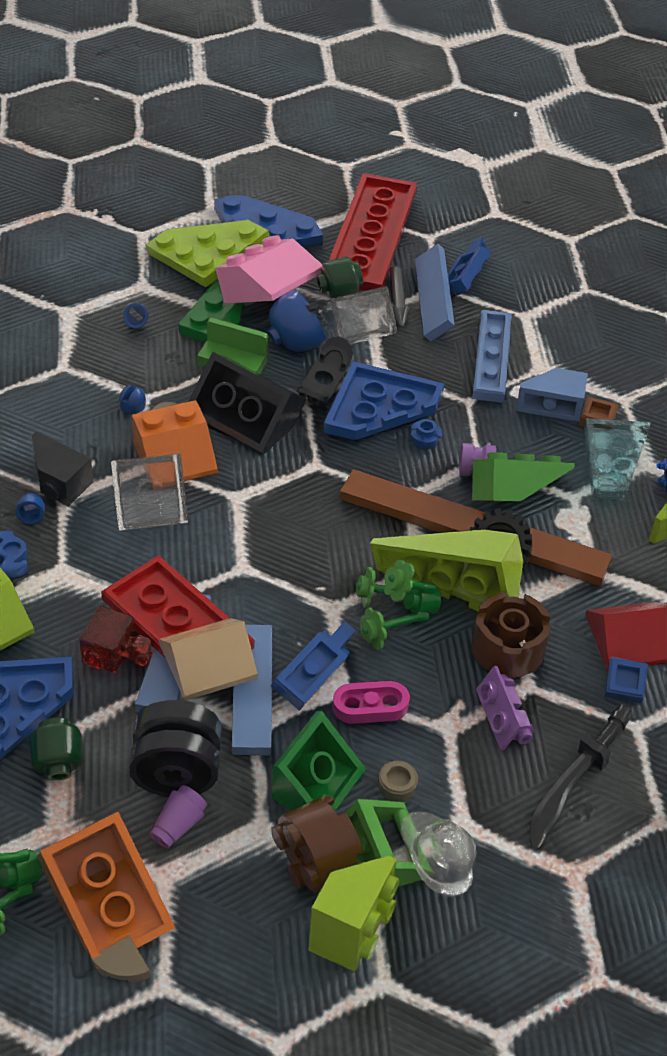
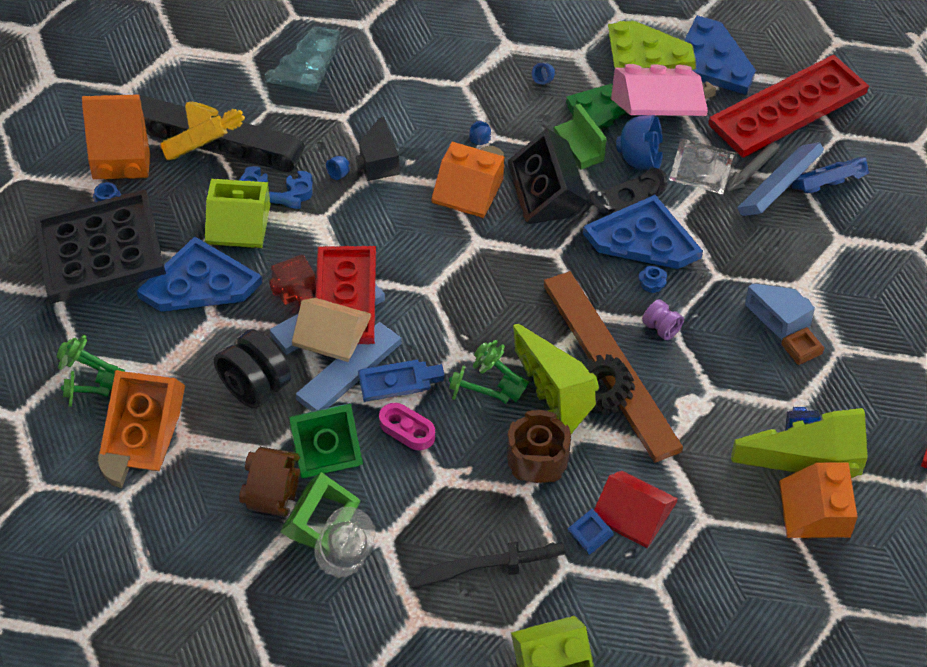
camera: 45 degrees right, 5 degrees up
(56, 748) = (197, 324): dark green head -> none
(149, 491) = (416, 202): clear slope -> none
(178, 815) = (222, 411): medium lavender cone -> none
(340, 277) = (710, 126): dark green head -> none
(351, 911) = (250, 531): lime slope -> none
(398, 781) = (372, 485): dark tan tile -> none
(492, 356) = (773, 253): medium blue tile -> none
(501, 705) = (478, 499): medium lavender hinge -> none
(514, 479) = (669, 348): bright green slope -> none
(613, 455) = (772, 380): clear light blue wing -> none

